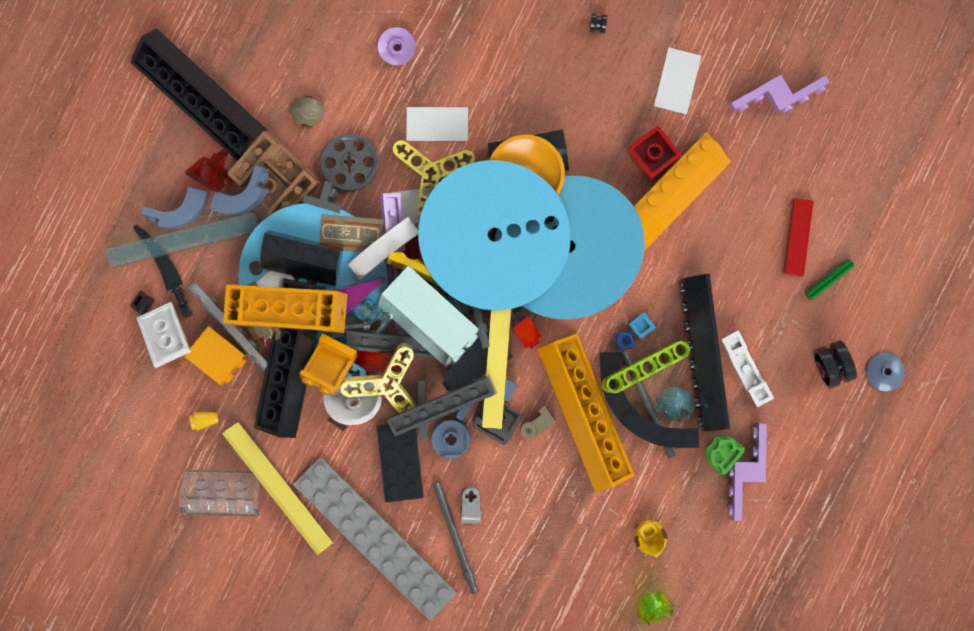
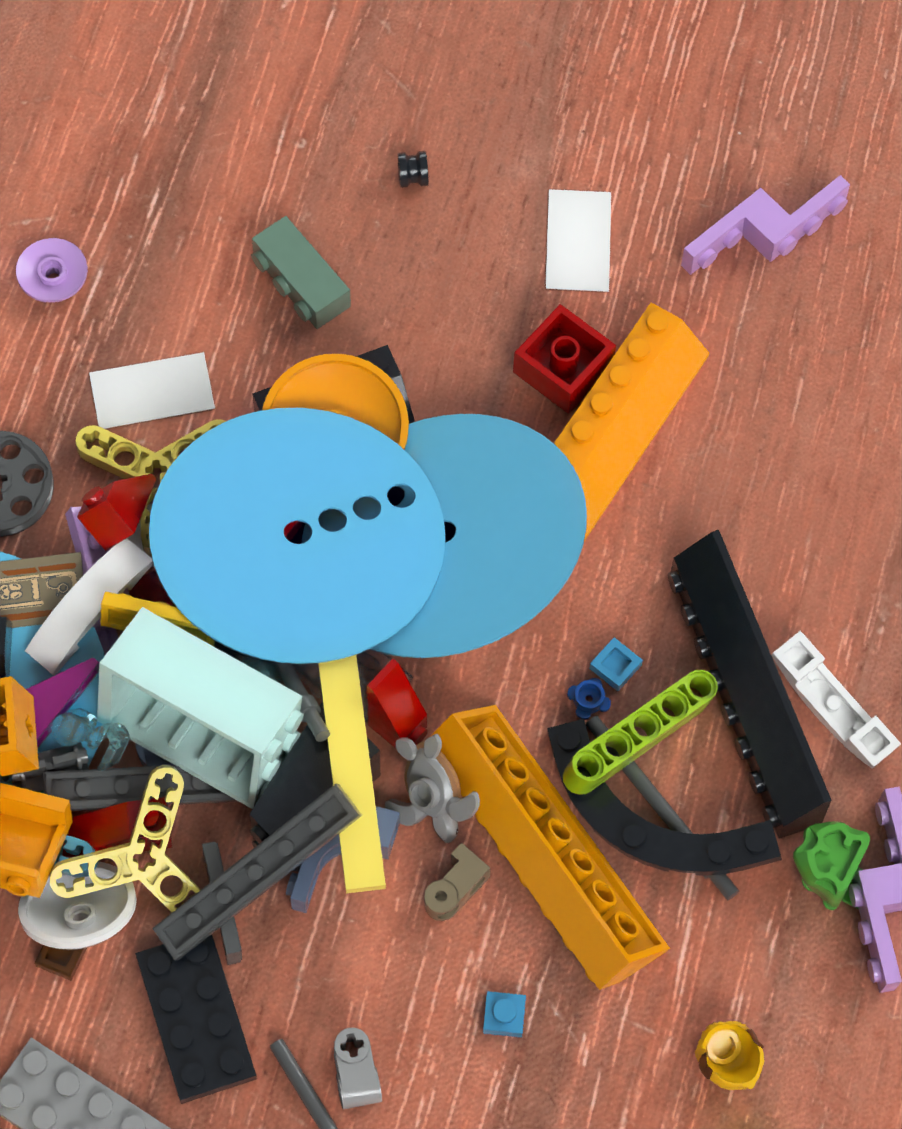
camera: 20 degrees left, 20 degrees down
(405, 200) = (116, 509): none -> red slope
(442, 432) = (278, 969): sand blue plate -> none
(509, 423) = (376, 910): dark grey bracket -> none
(526, 73) = (300, 273): none -> sand green brick
(536, 376) = (432, 789): none -> light grey animal
(547, 492) = (504, 1014): none -> dark azure plate
(675, 403) = (714, 789): clear light blue cone -> none
(798, 237) = (868, 457): red tile -> none

